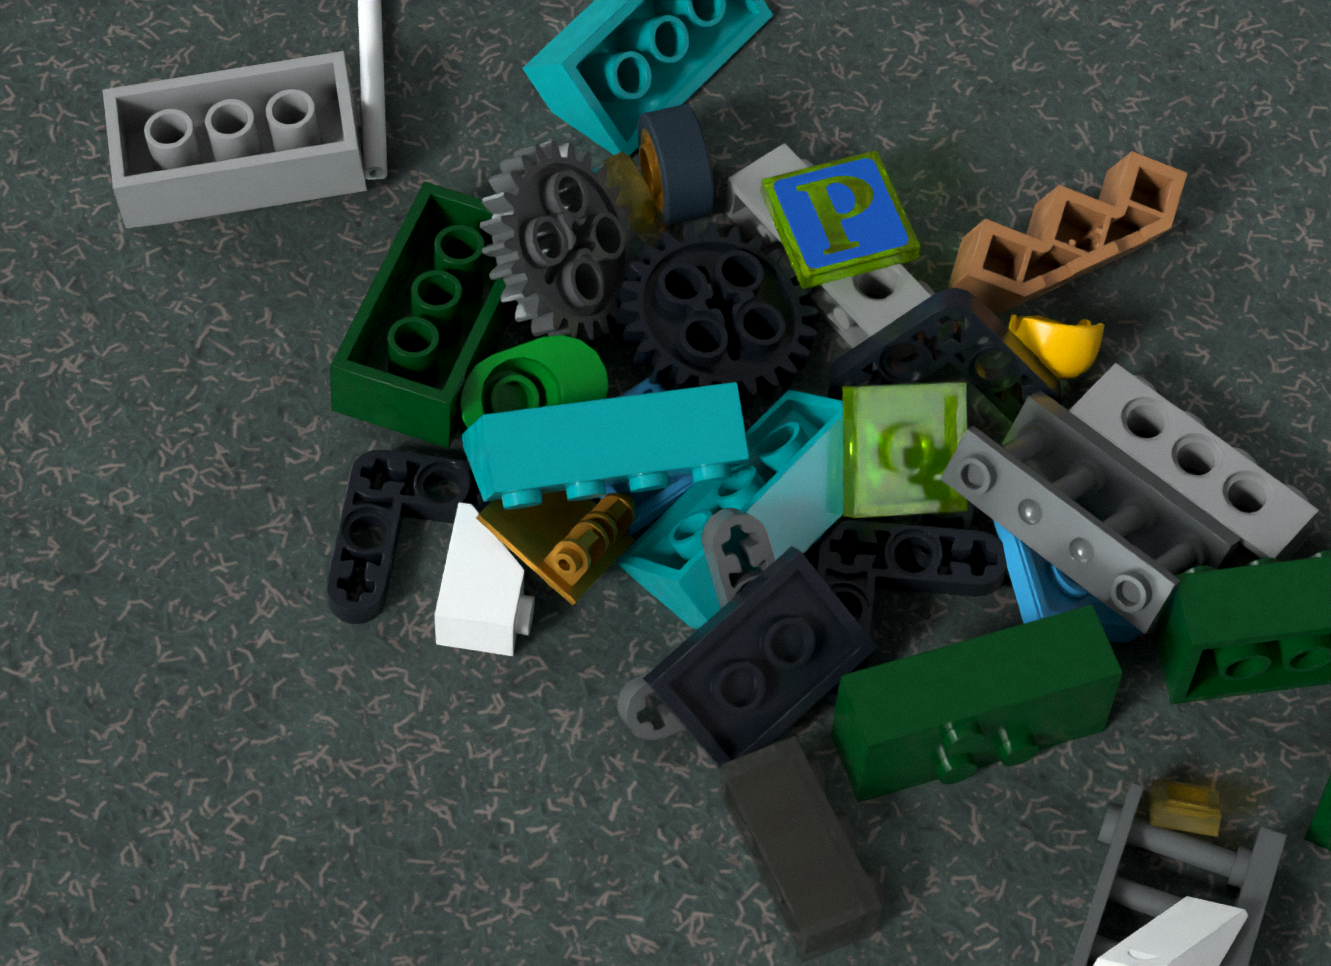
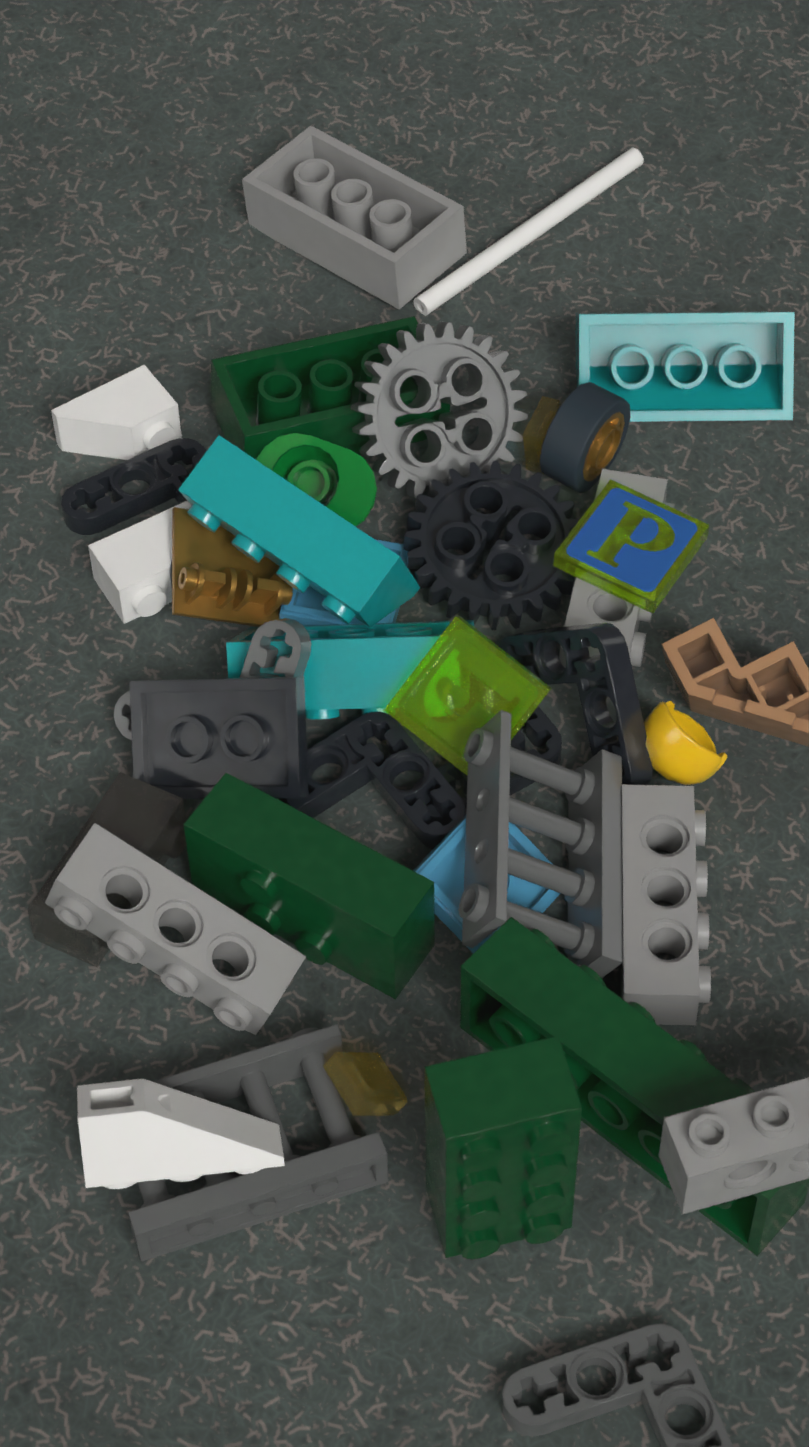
camera: 55 degrees right, 5 degrees down
(288, 488) = (118, 418): none -> white slope
(934, 838) = (160, 899): none -> light grey brick

